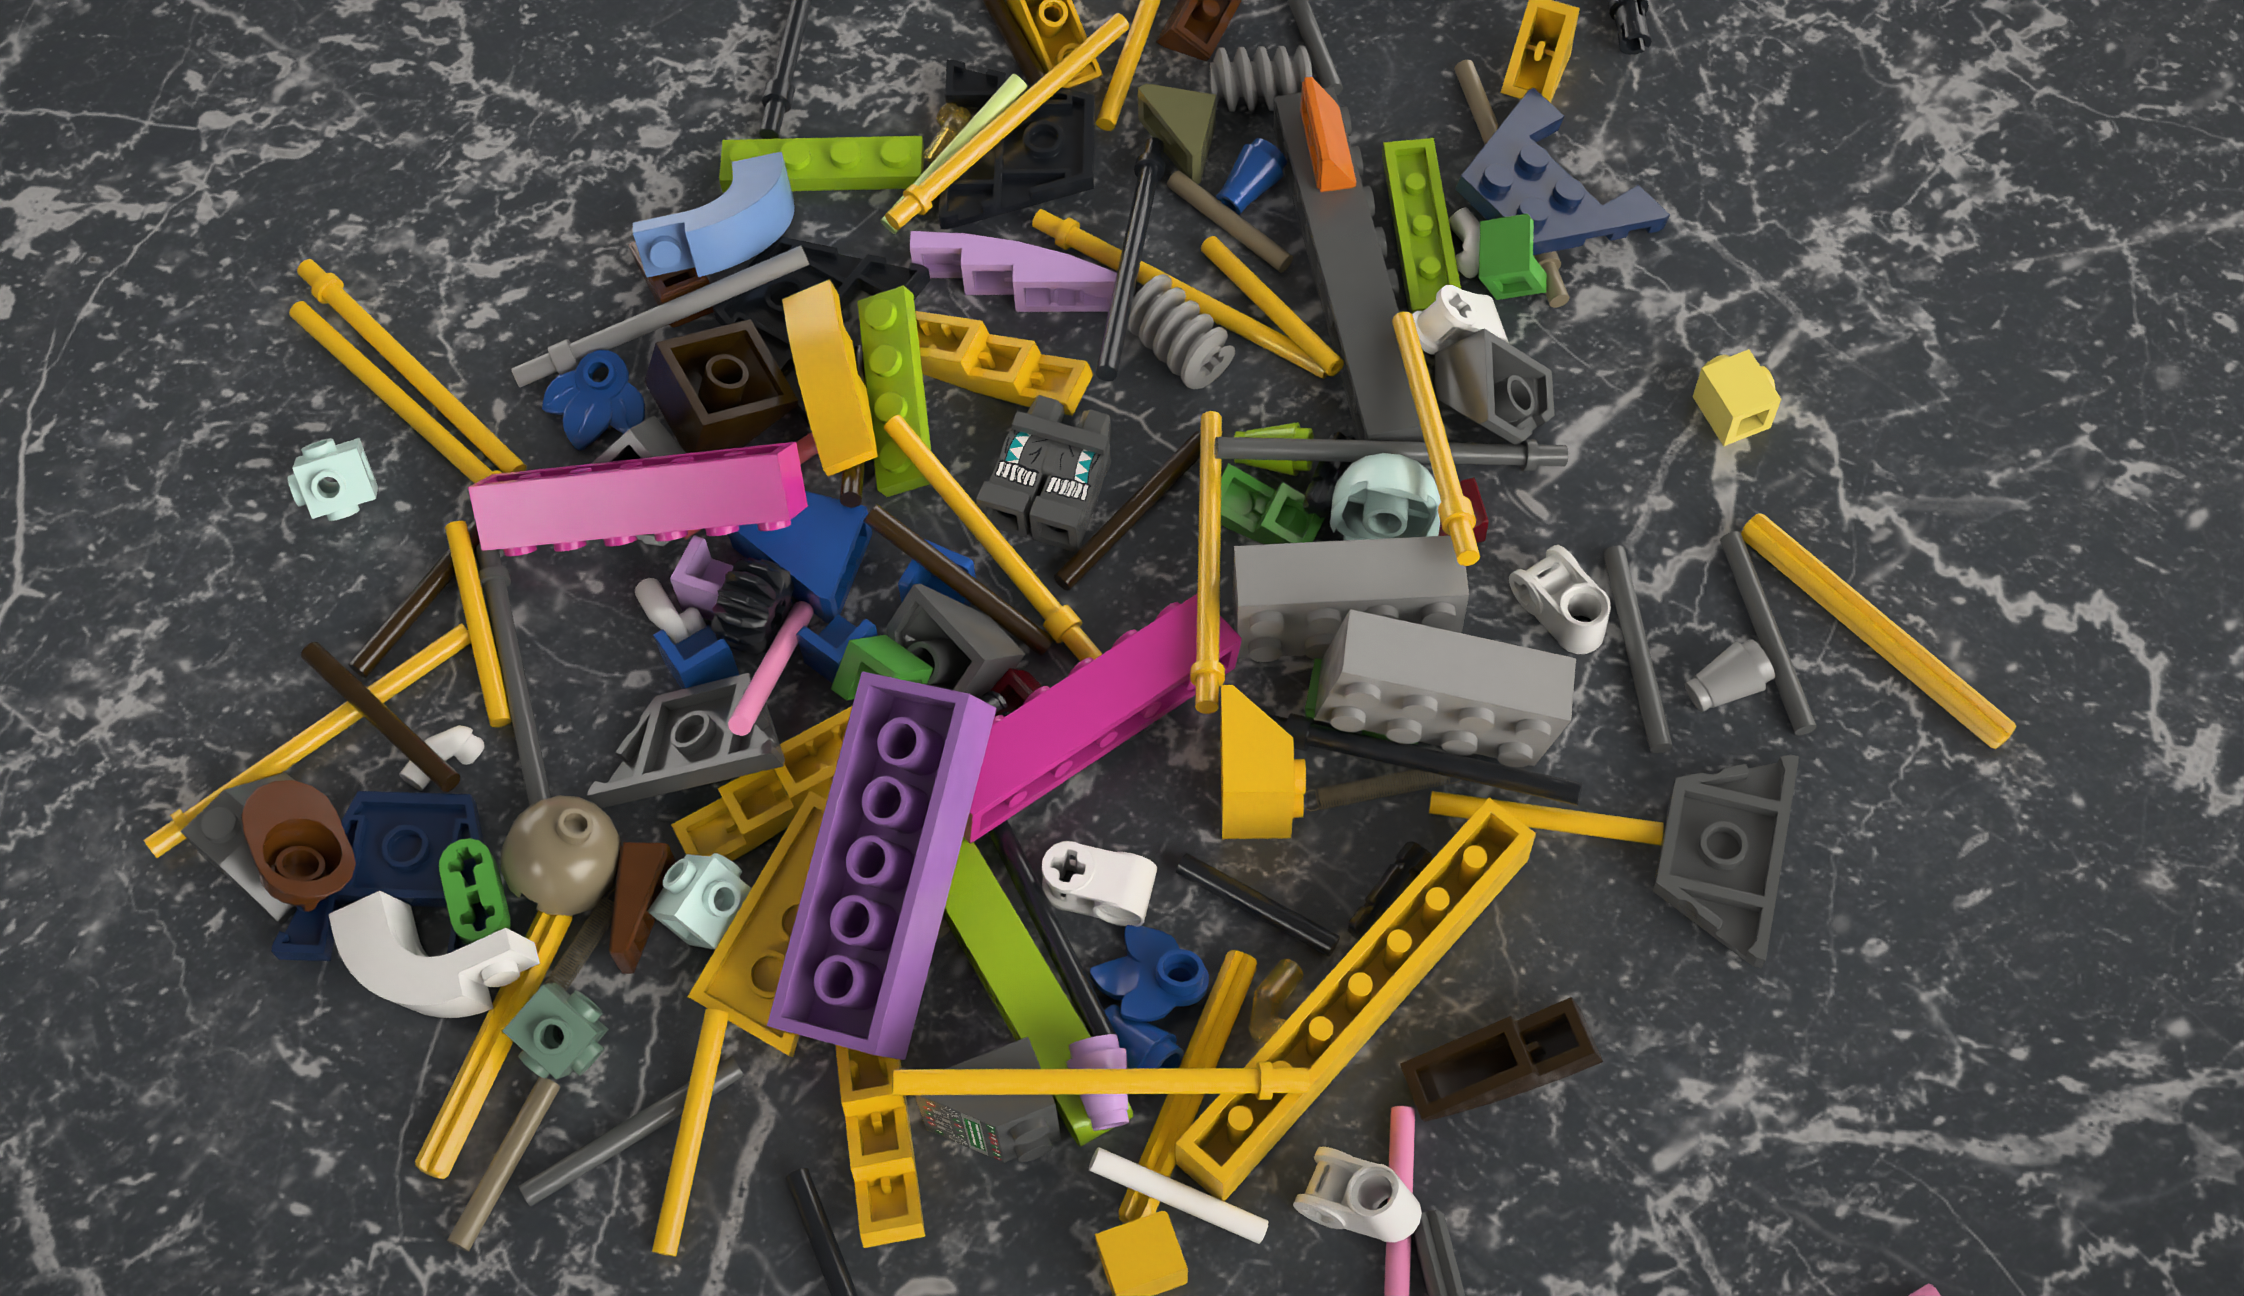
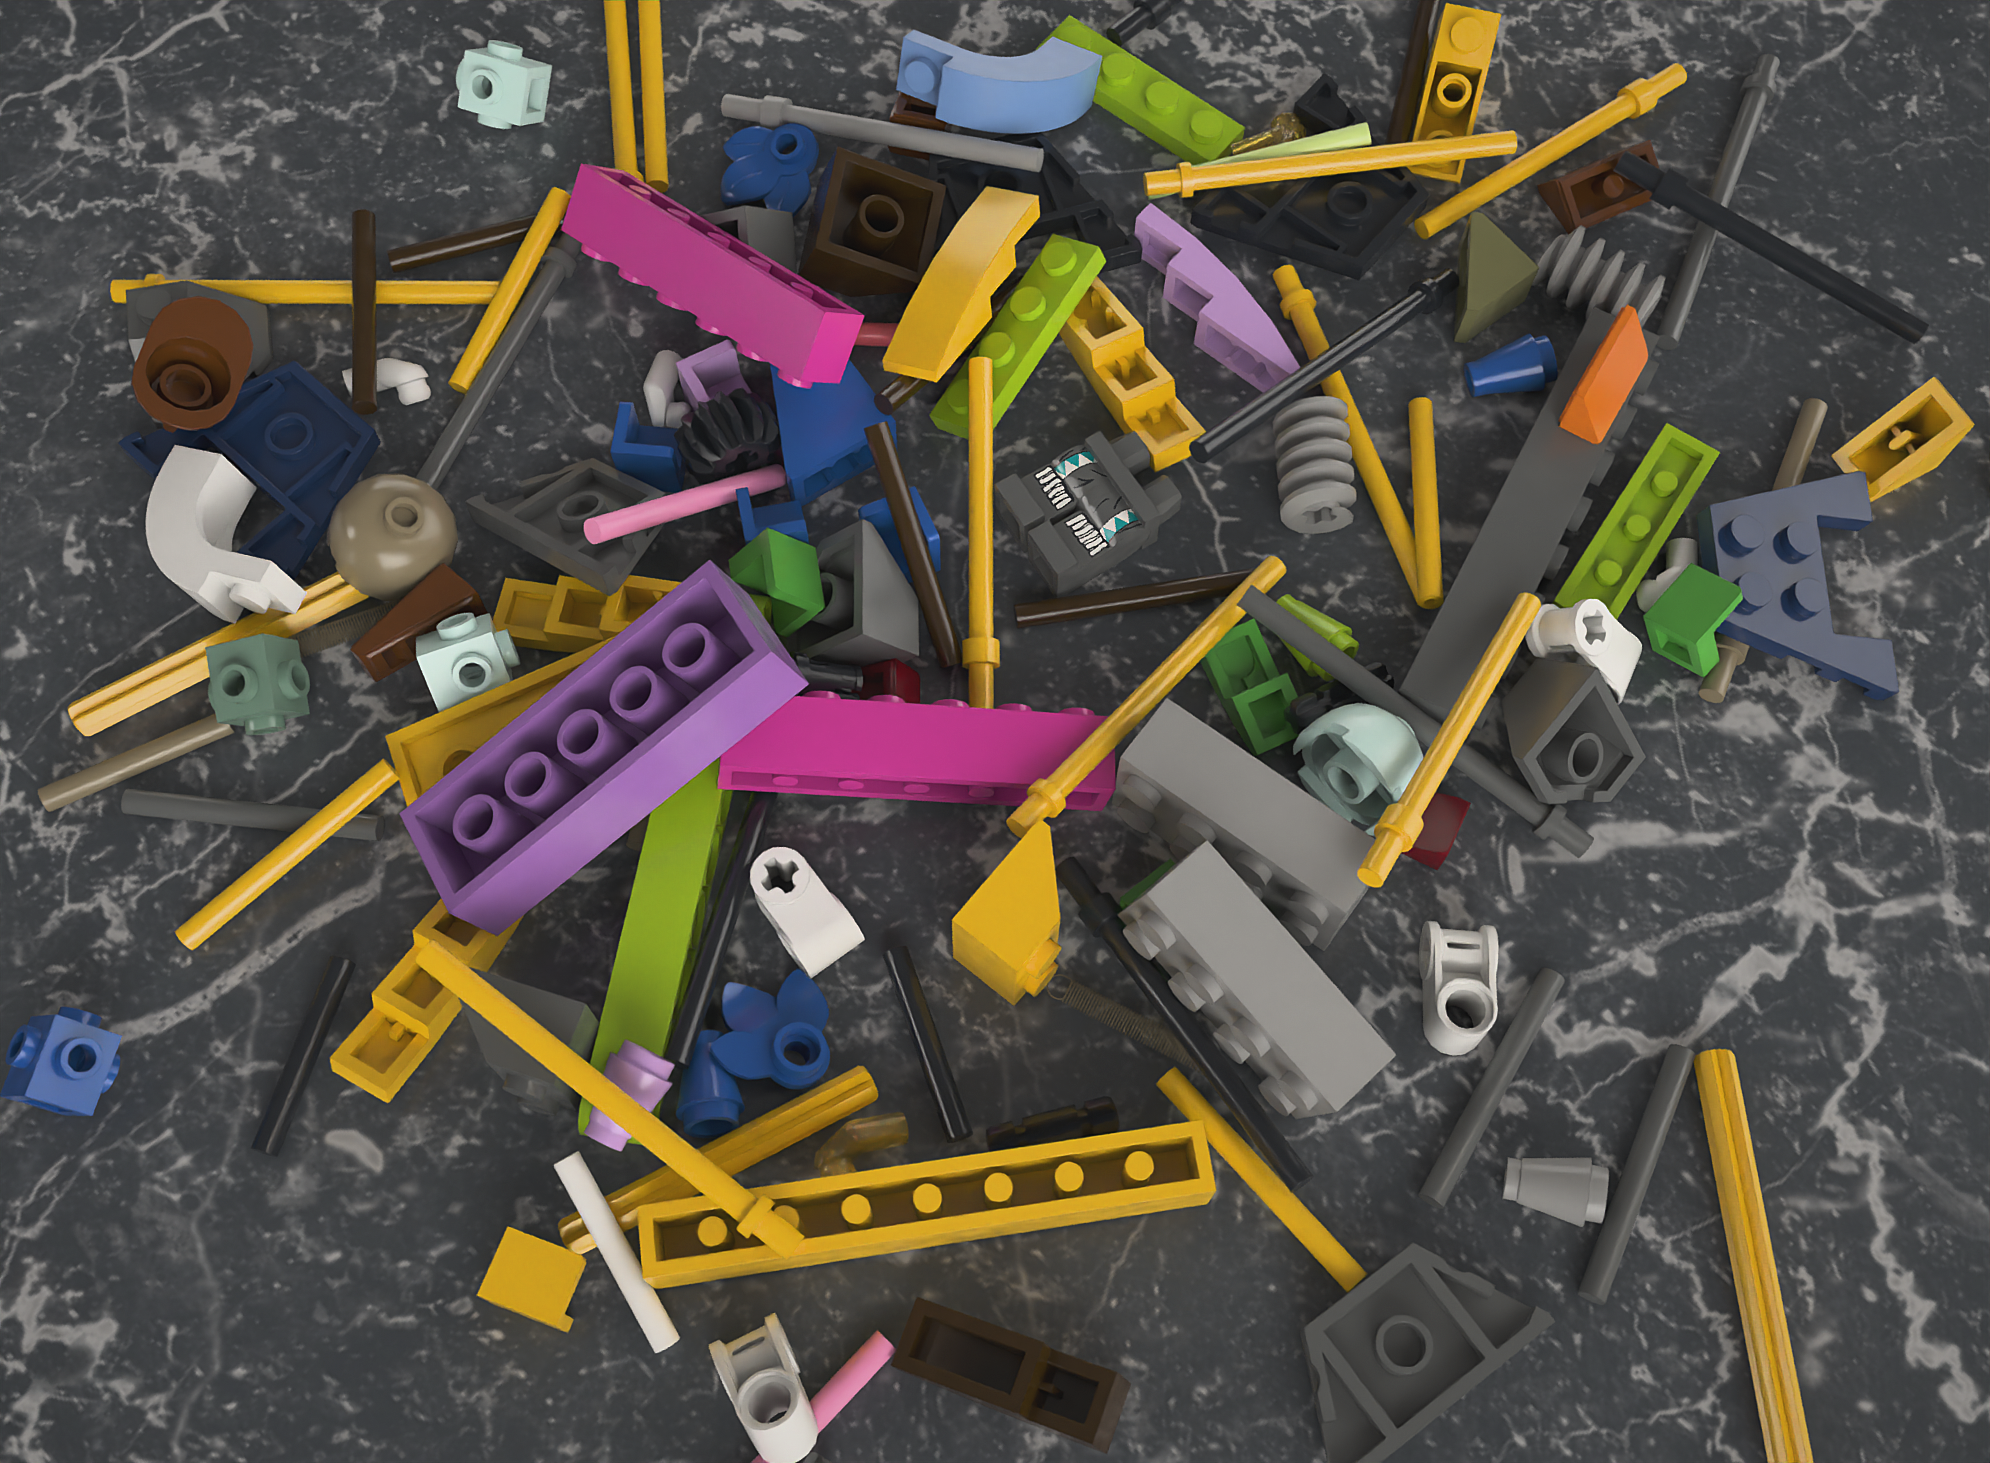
camera: 35 degrees right, 5 degrees up
(461, 896) = (290, 513): bright green beam -> none
(1230, 221) = (1458, 397): dark tan bar -> none
(1736, 396) = (1809, 918): light yellow brick -> none

